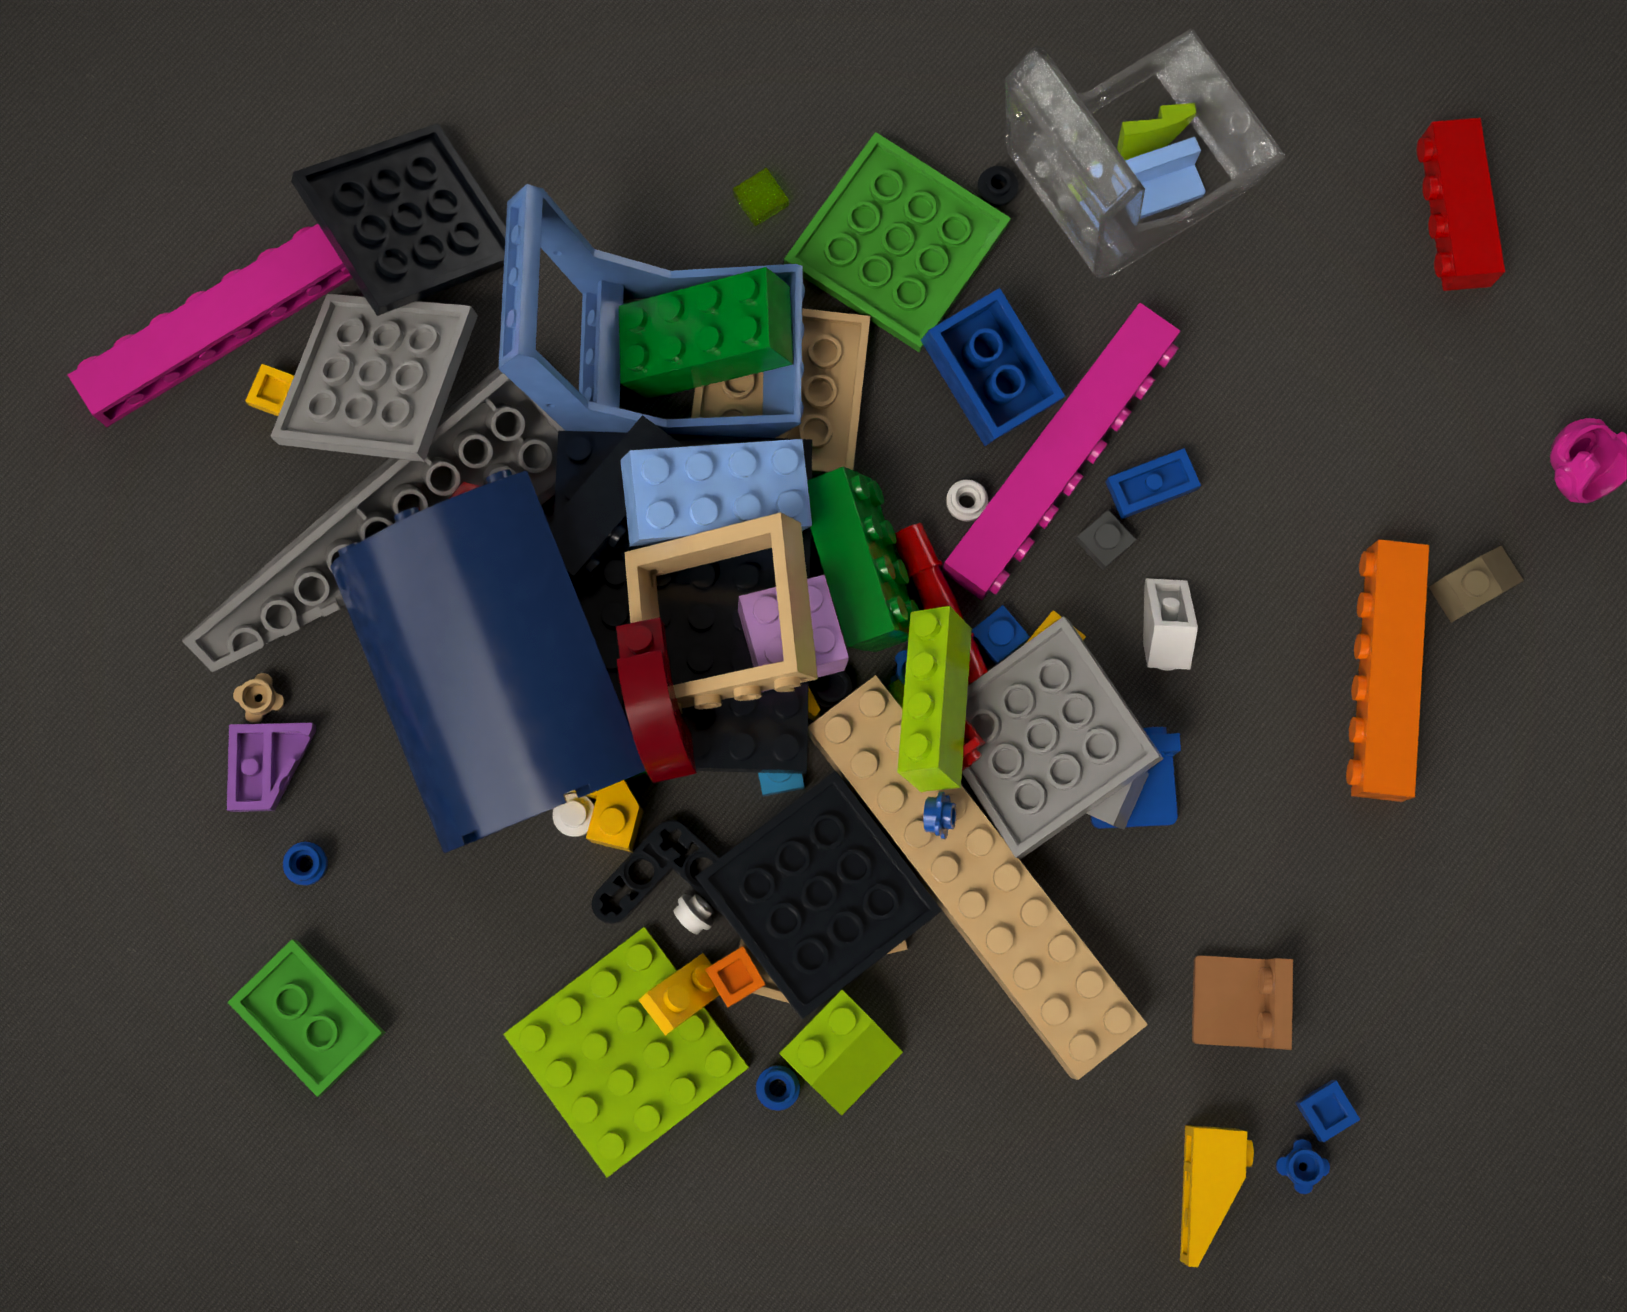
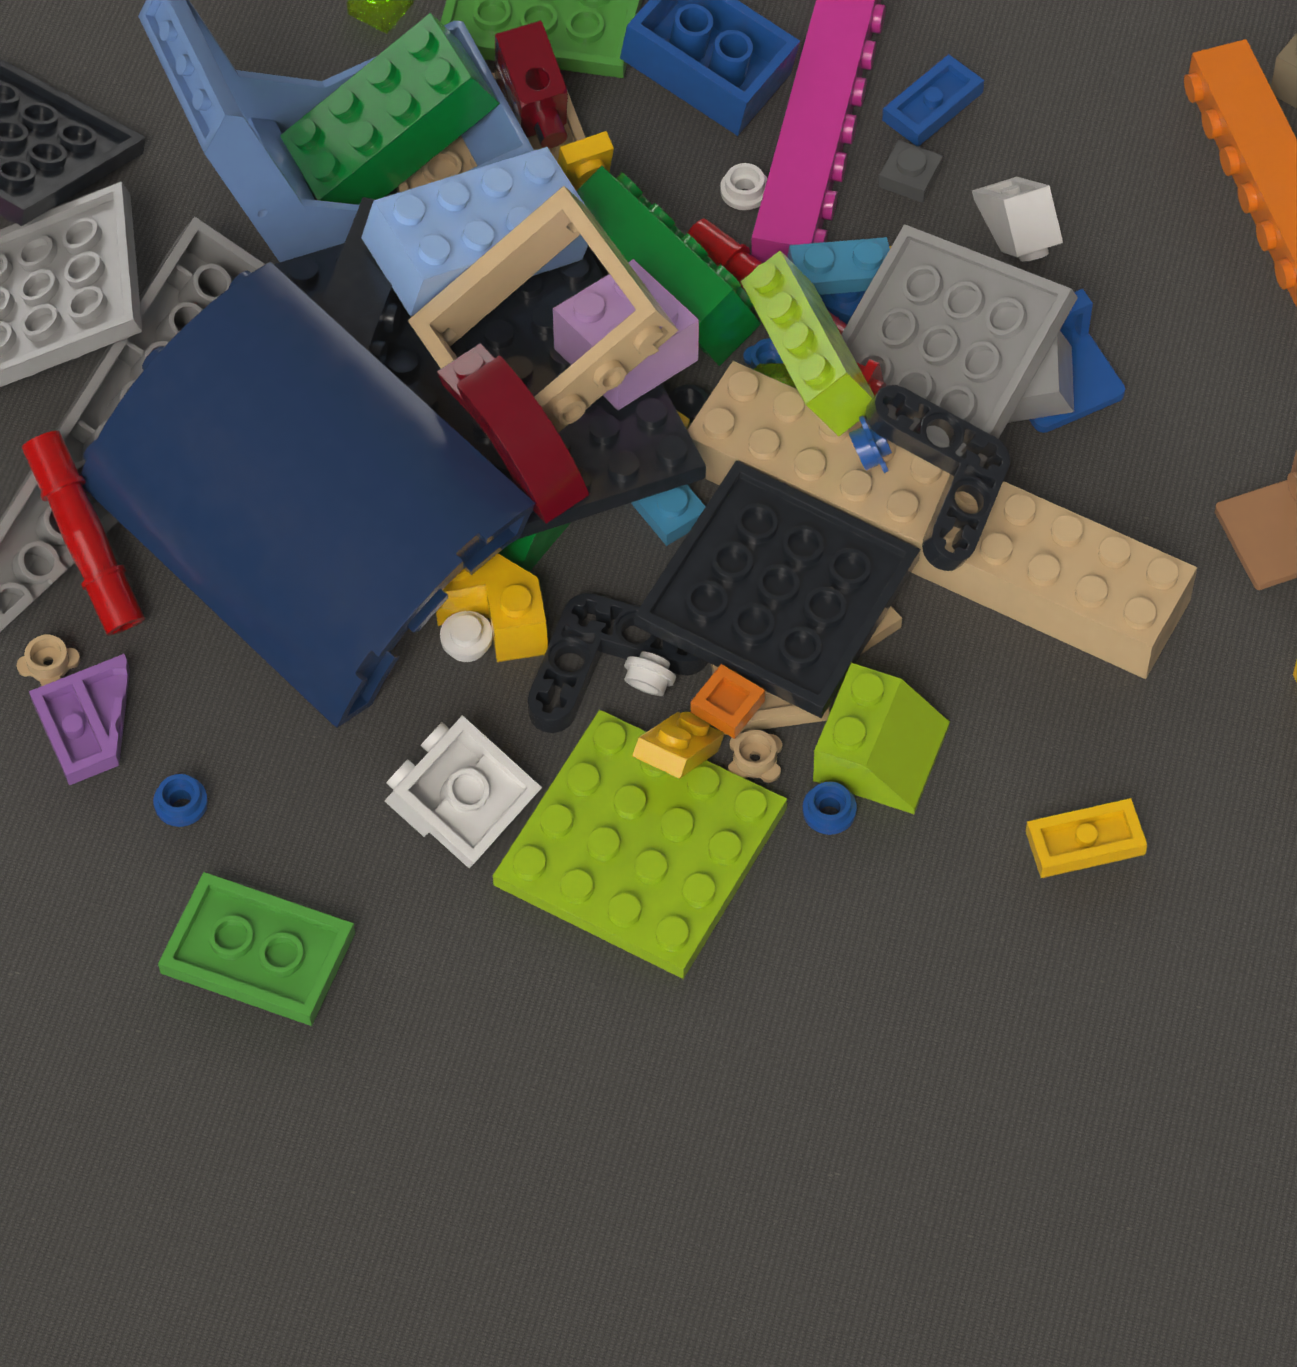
camera: 20 degrees left, 20 degrees down
(317, 610) = (83, 532): none -> red piece
(508, 954) = (461, 790): none -> white plate
(747, 1029) = (756, 743): none -> tan plate
(831, 337) = (532, 82): none -> dark red torso
(835, 452) = (584, 157): none -> yellow plate
(956, 1203) = (1086, 838): none -> yellow plate
(1000, 874) = (964, 470): none -> black beam
(1003, 617) = (840, 264): none -> dark azure plate

